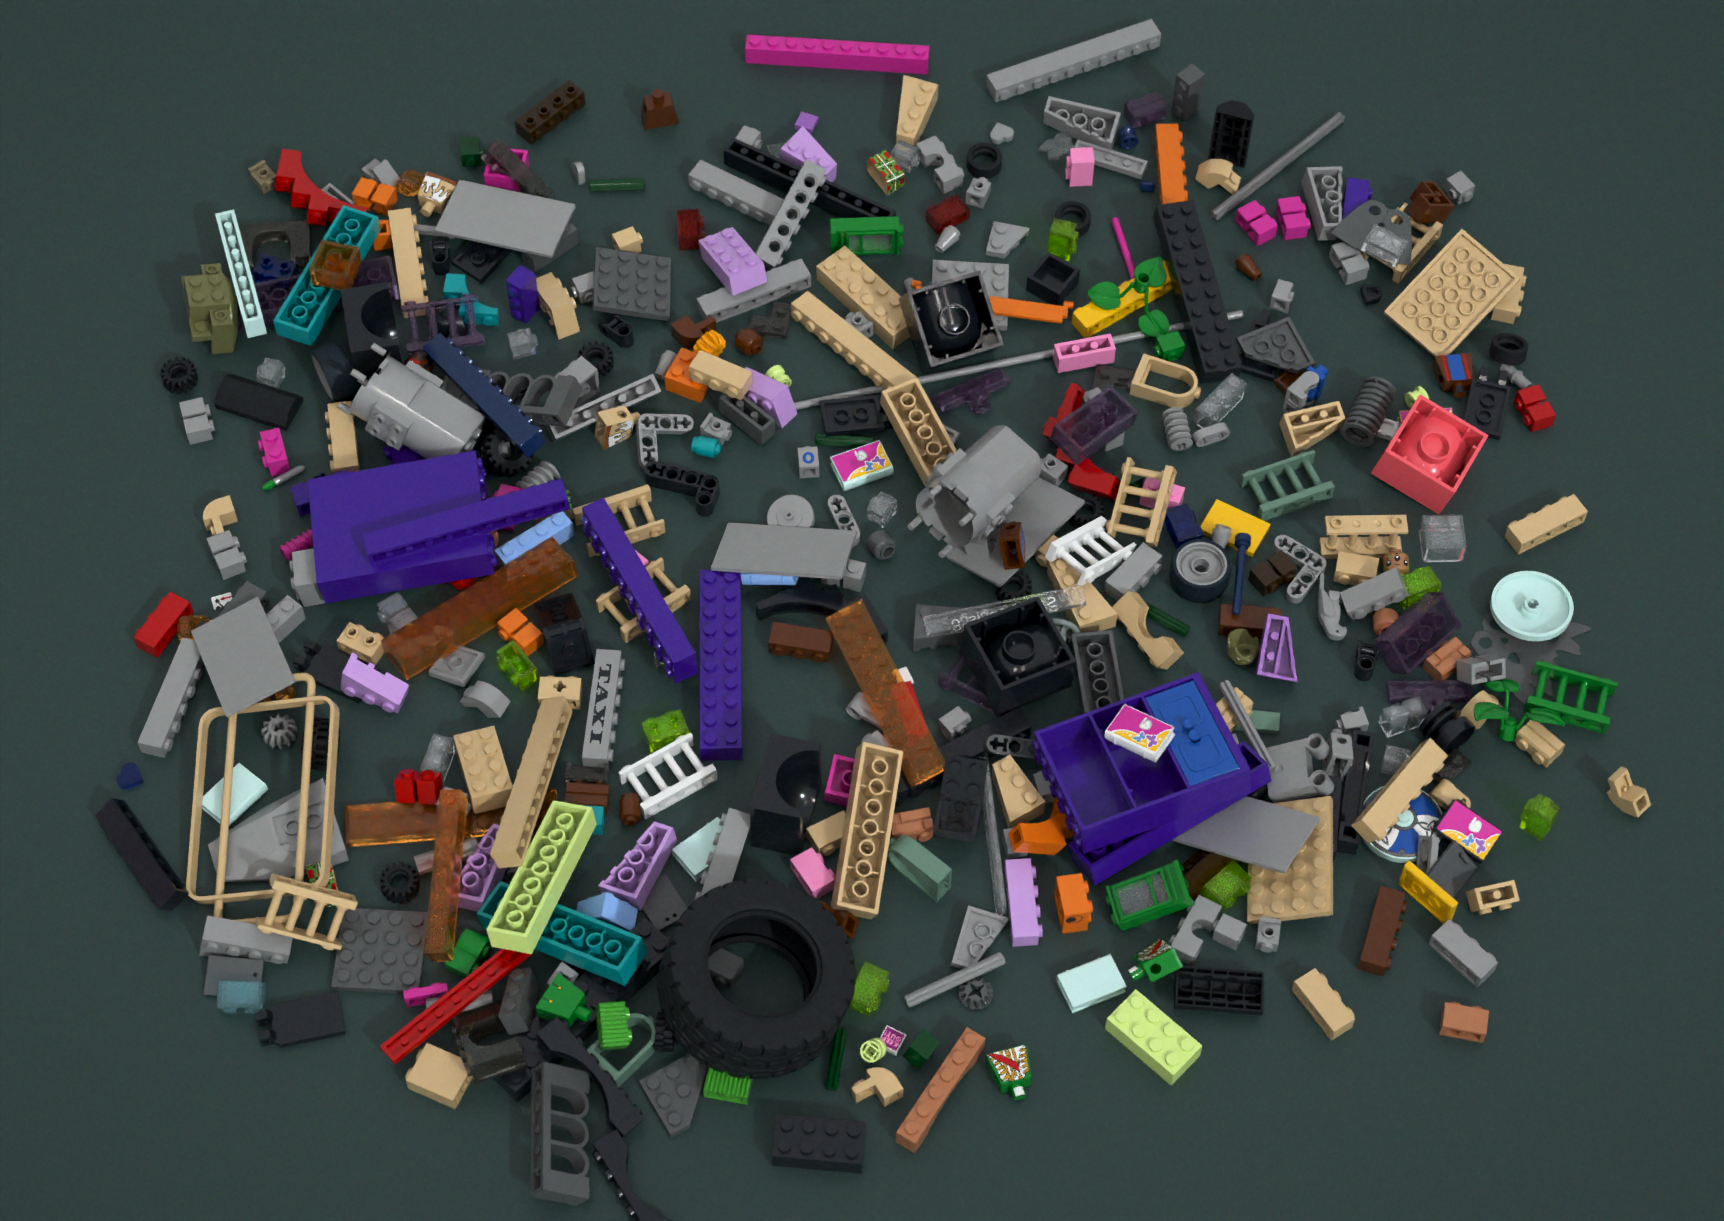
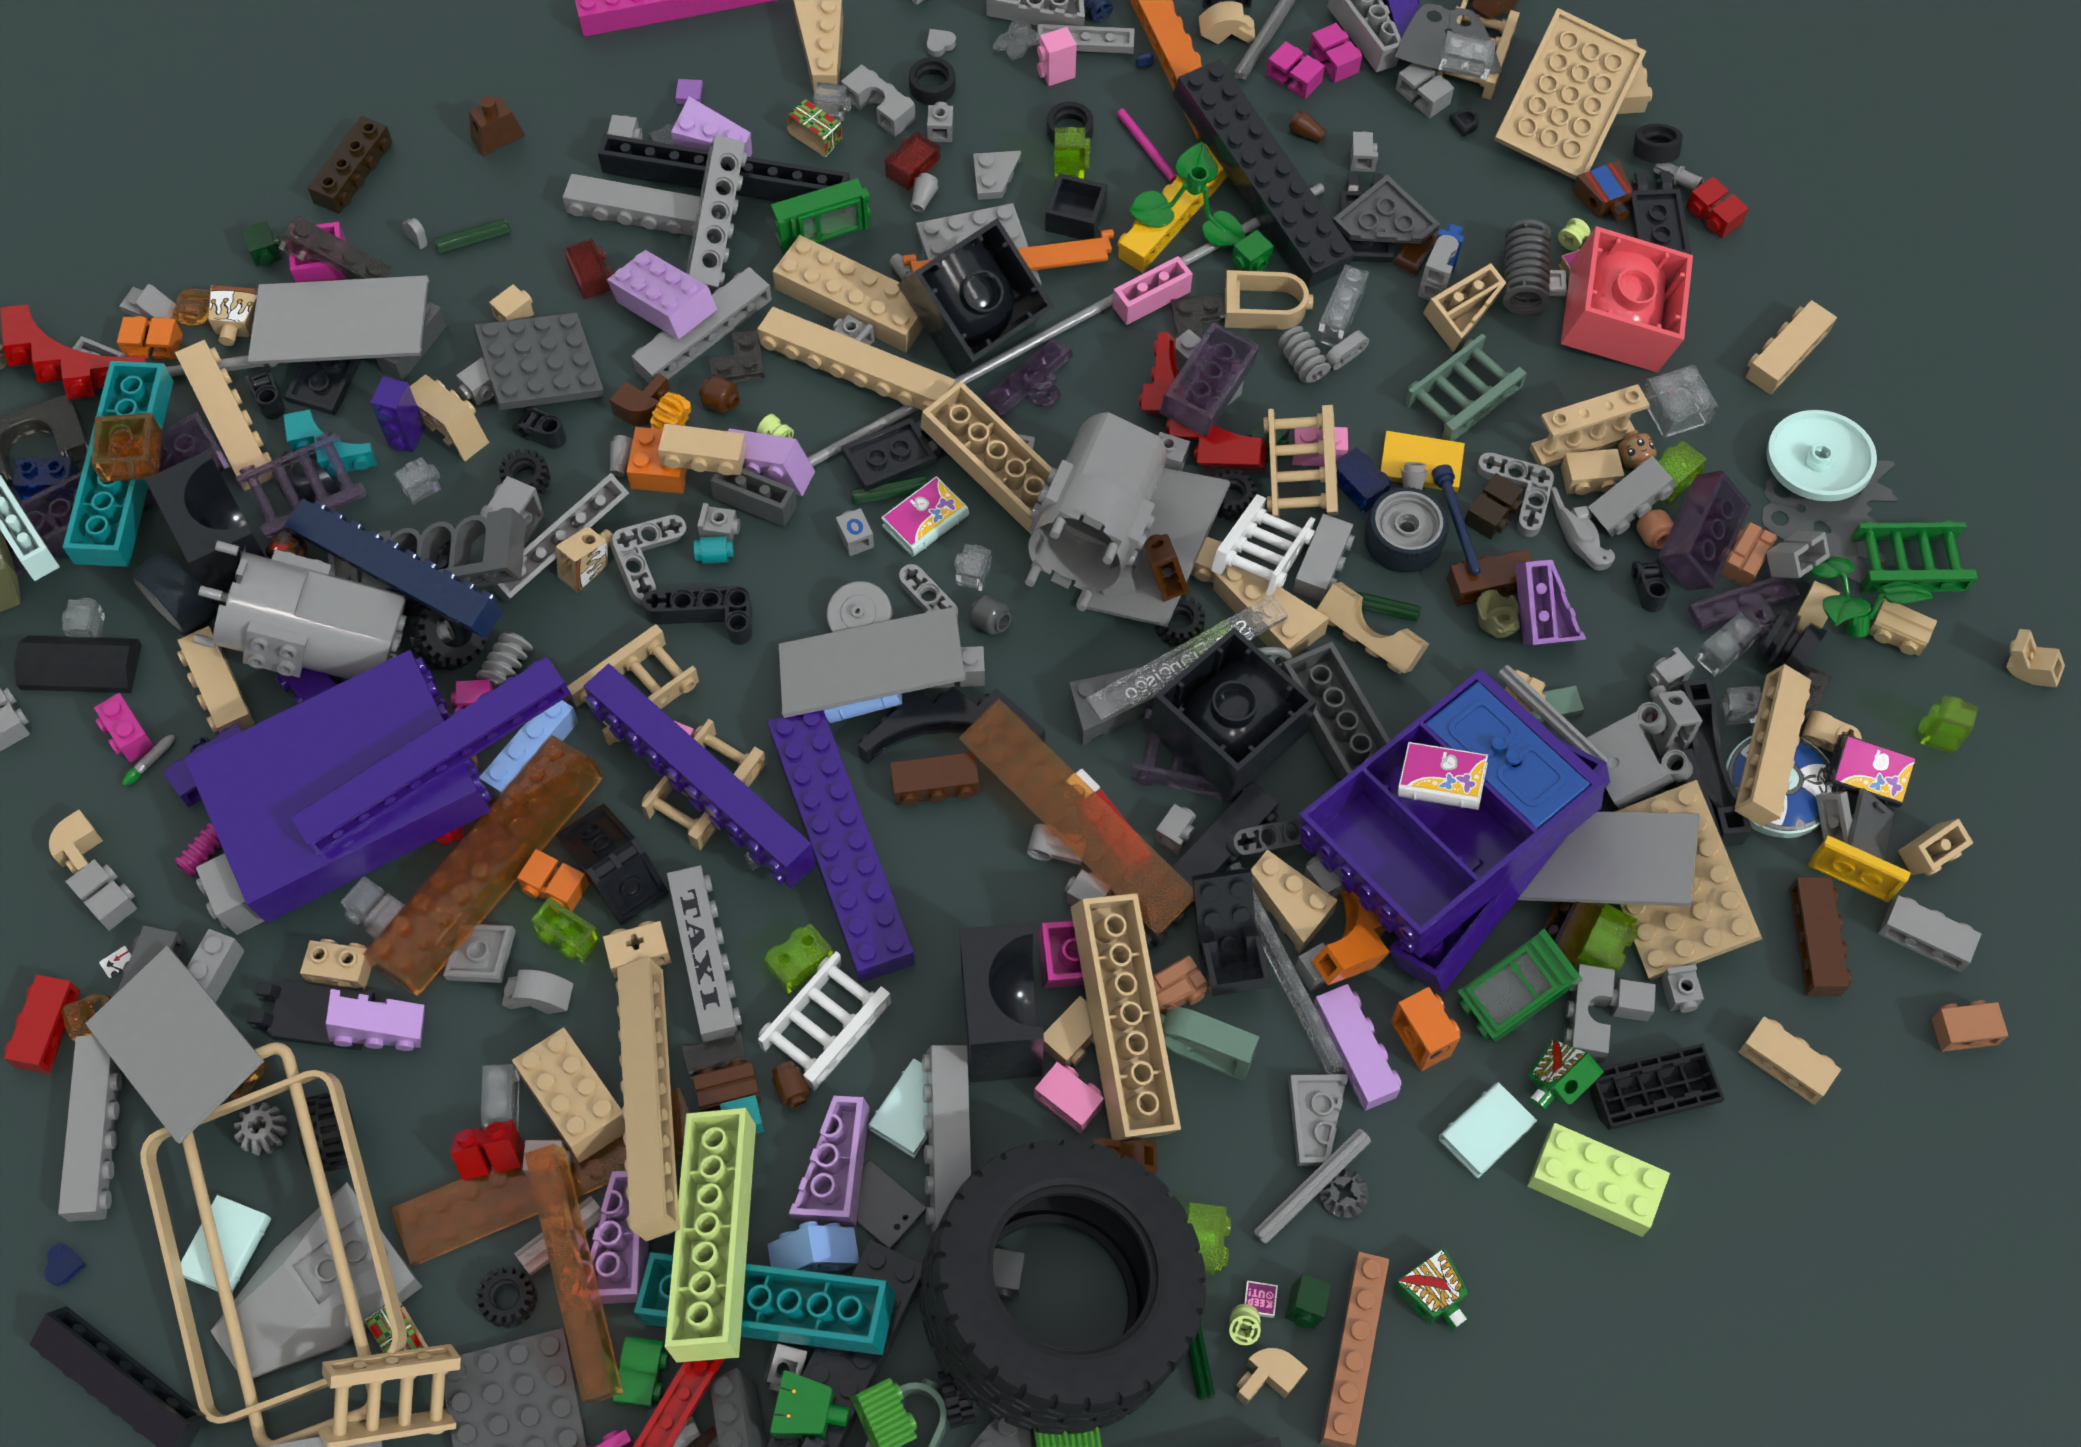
camera: 20 degrees left, 5 degrees up
(384, 238) = (182, 391): orange brick -> none

